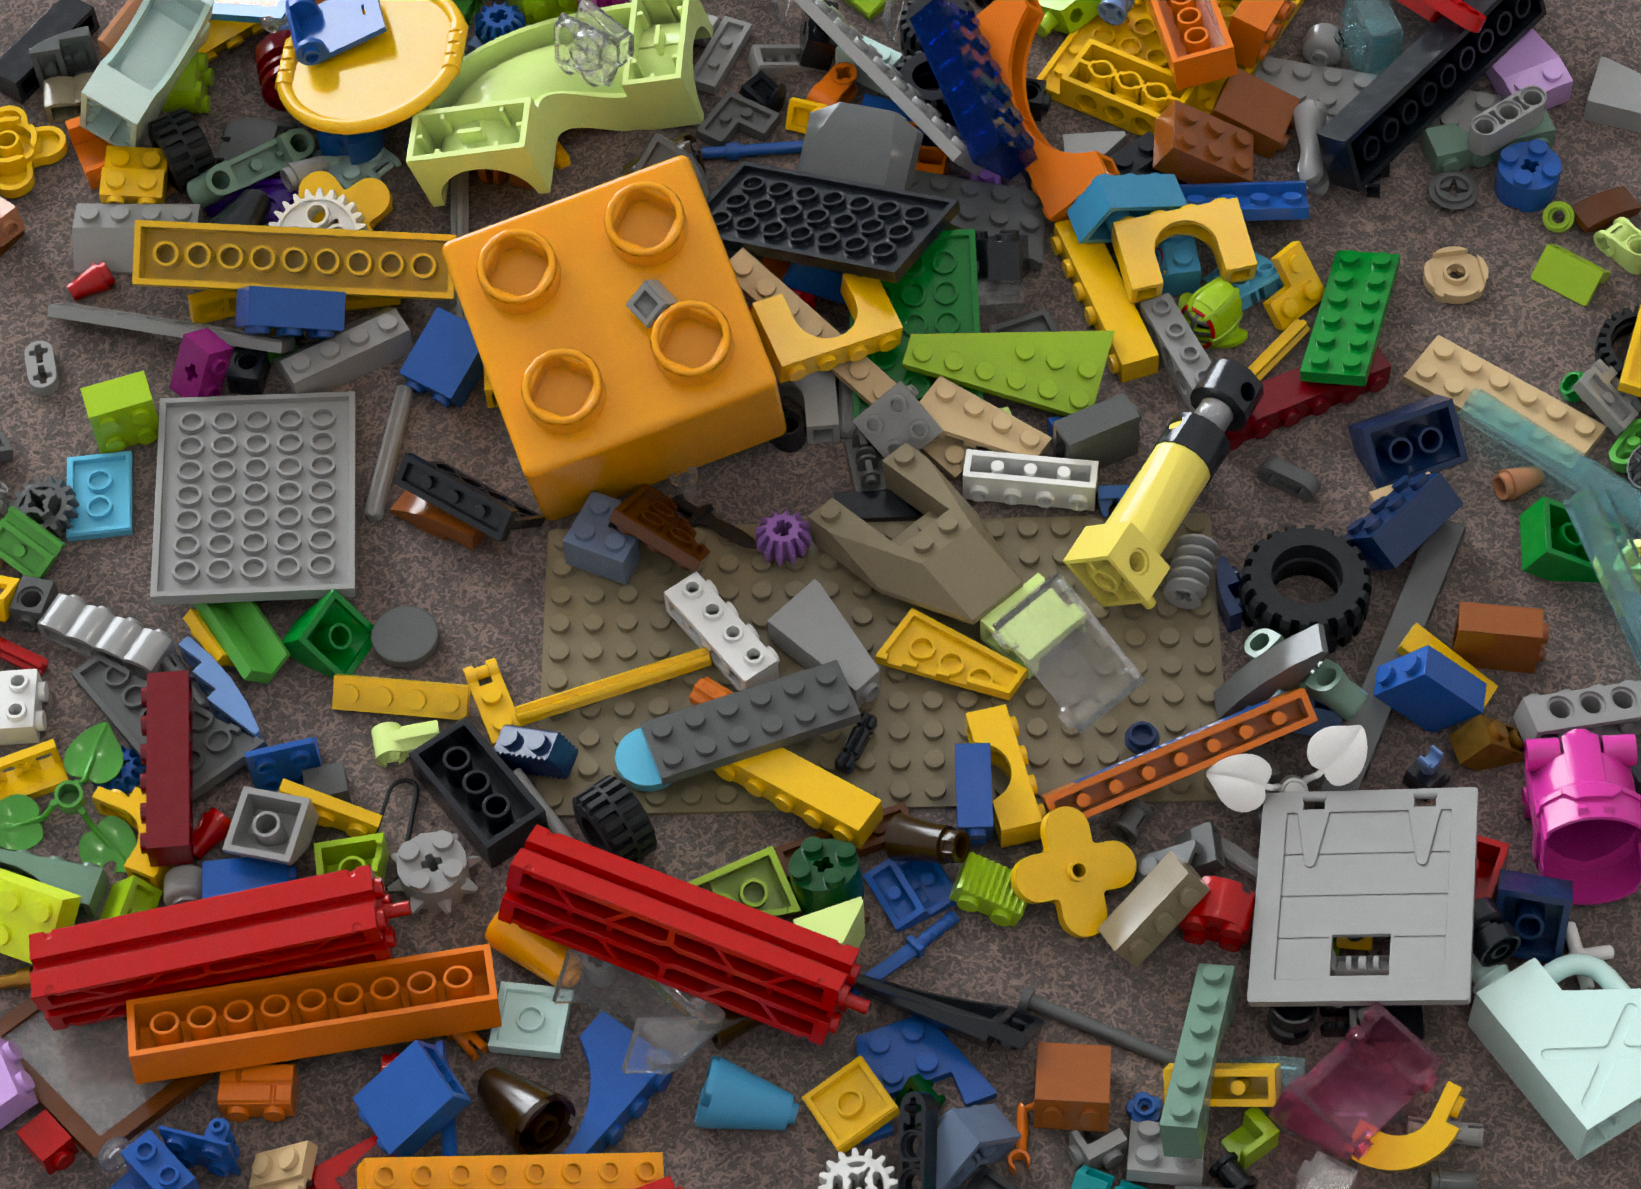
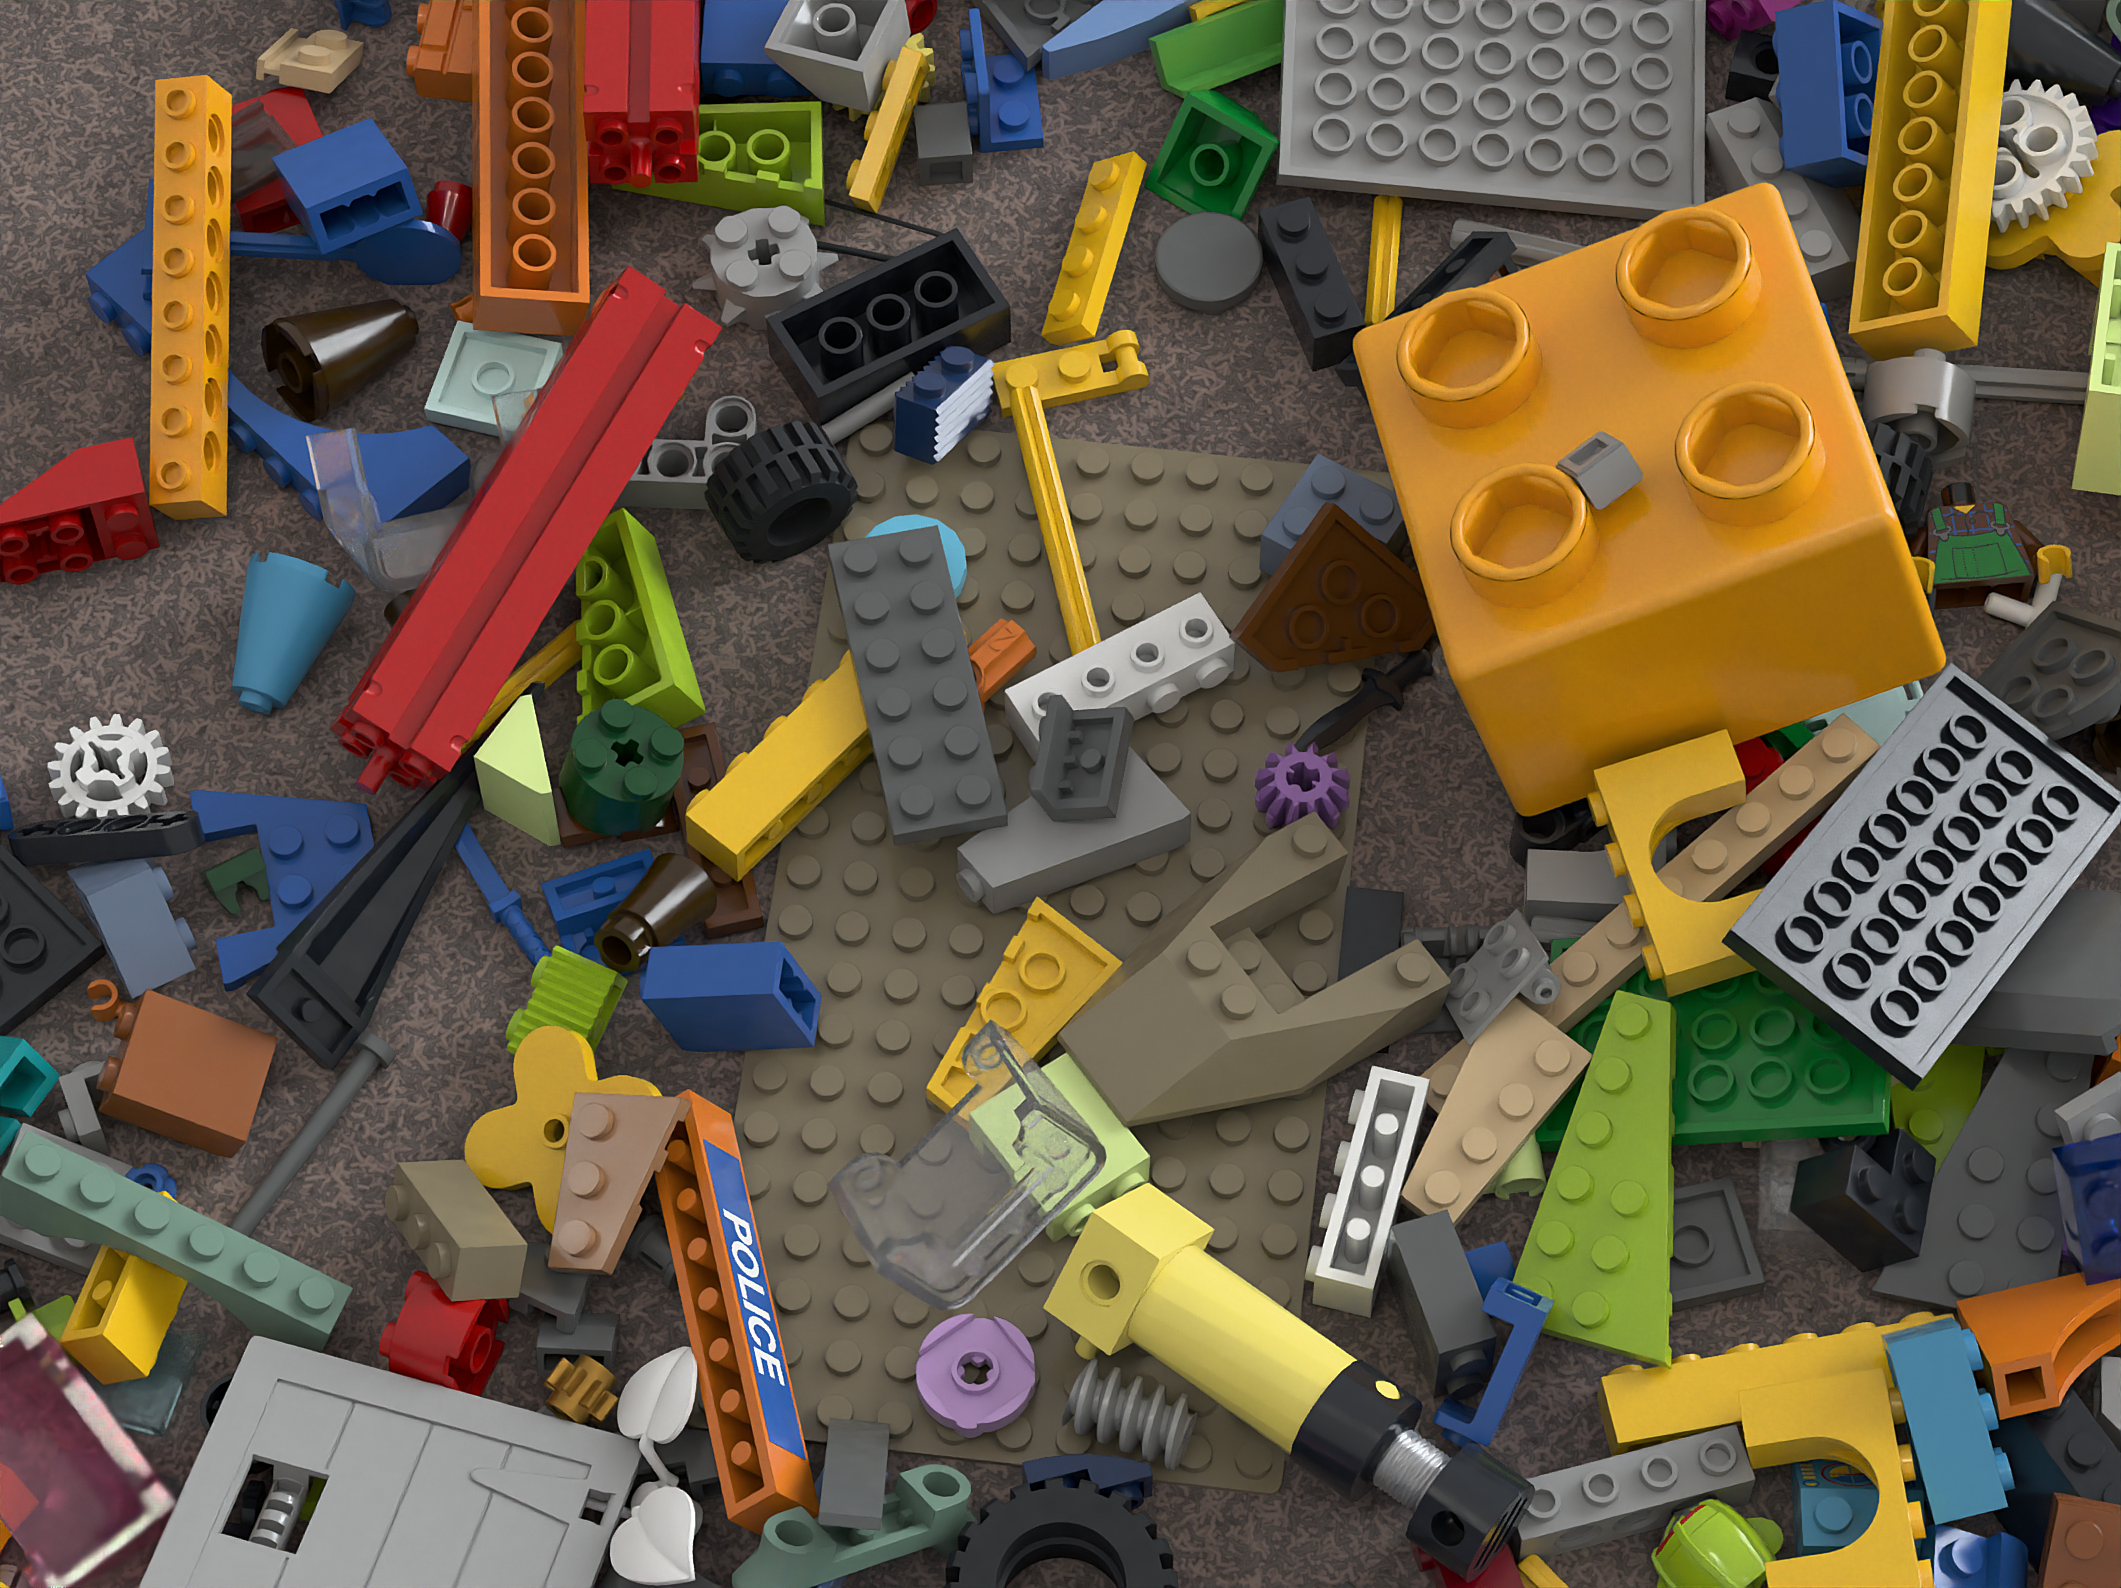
camera: 95 degrees right, 5 degrees up
(395, 741) = (1012, 245): yellowish green piece -> none
(401, 550) = (1383, 258): none -> yellow axle
(423, 576) = (1309, 282): none -> black brick
(796, 624) = (1080, 760): none -> dark grey bracket
(851, 1105) = (248, 779): yellow tile -> none
(855, 743) = (883, 858): black axle -> none
(1015, 811) = (839, 1060): yellow arch -> none
(1107, 829) = (606, 1168): none -> medium nougat wing
(1109, 494) = (1330, 1318): blue tile -> none
(1141, 737) = (810, 1287): dark blue plate -> none
(1153, 397) = (1528, 1315): none -> blue panel
(1173, 666) = (974, 1407): none -> lavender plate
(1238, 833) = (581, 1391): none -> pearl gold gear

